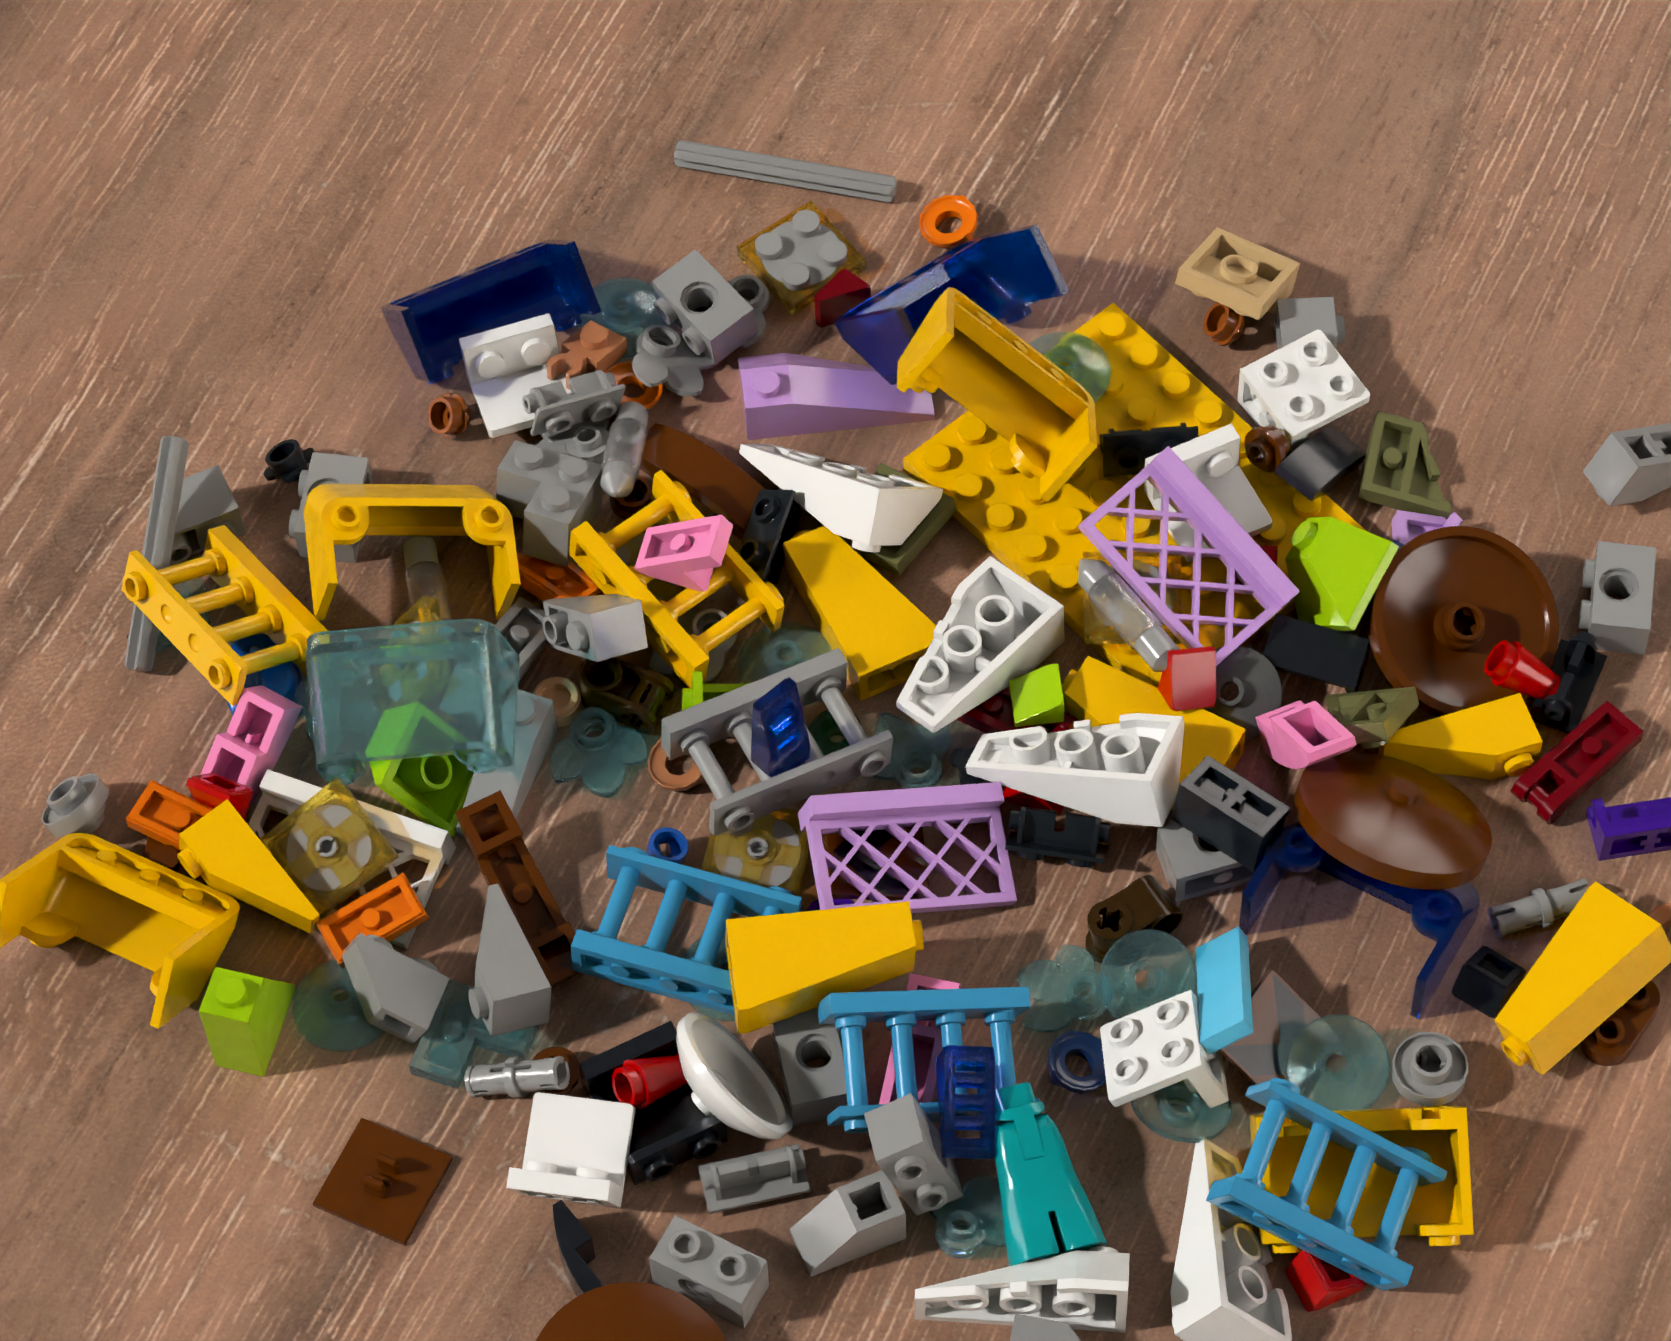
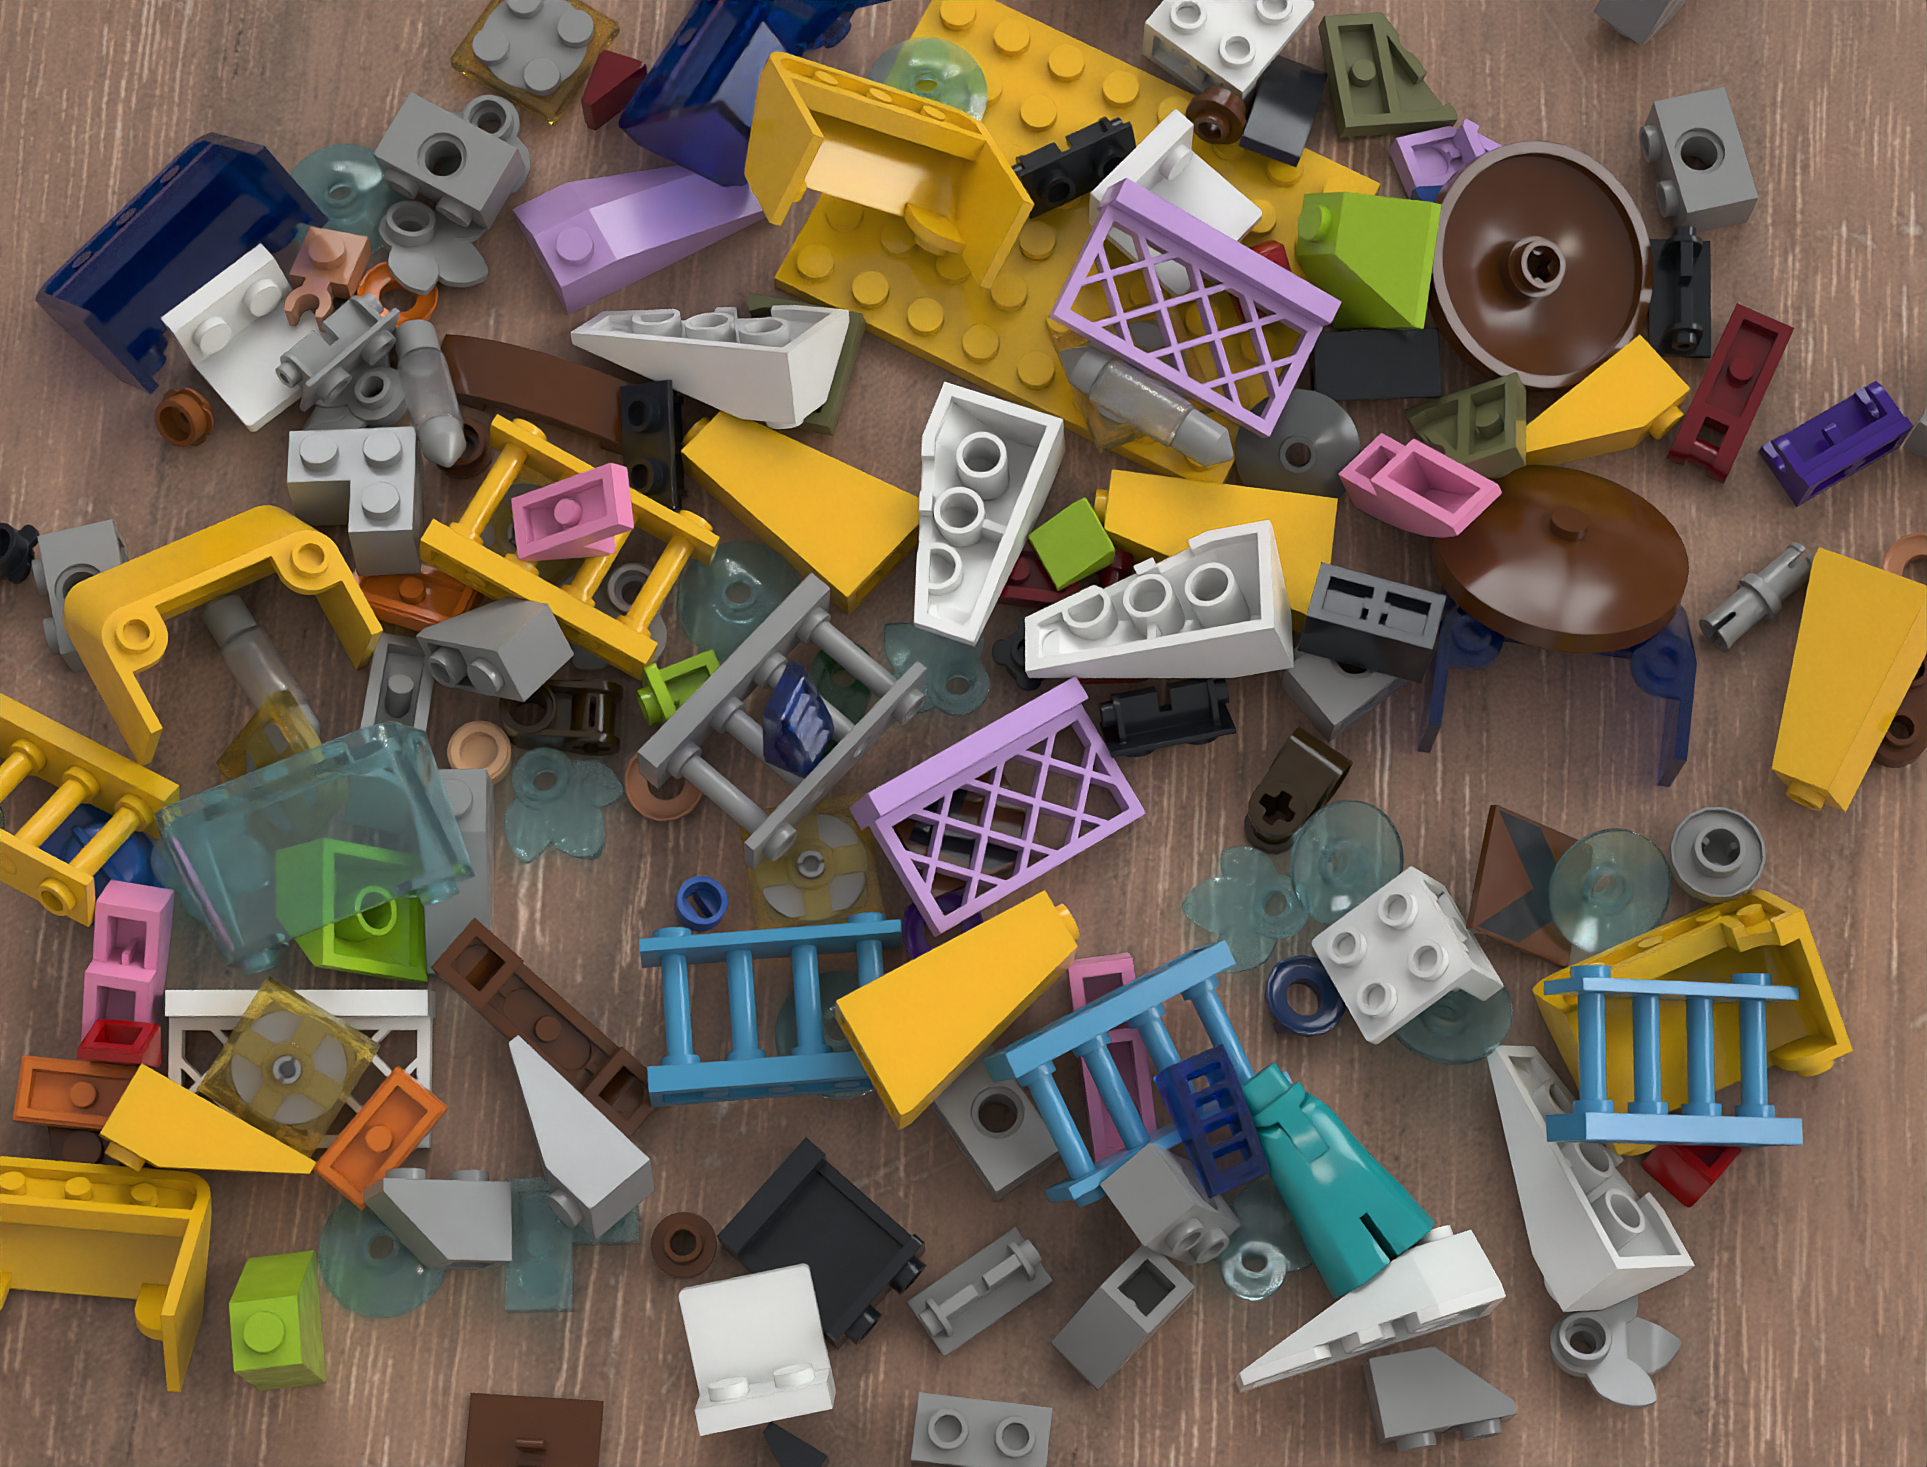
camera: 25 degrees left, 15 degrees up
(517, 1077) = (646, 1276): light grey pin -> none
(647, 1080) = (808, 1221): red cone -> none
(730, 1079) = (914, 1189): white dish -> none
(1189, 679) = (1251, 462): slope -> none
(1224, 990) = (1448, 850): medium azure tile -> none
(1487, 981) = (1732, 711): black slope -> none
(1520, 671) = (1627, 305): red cone -> none

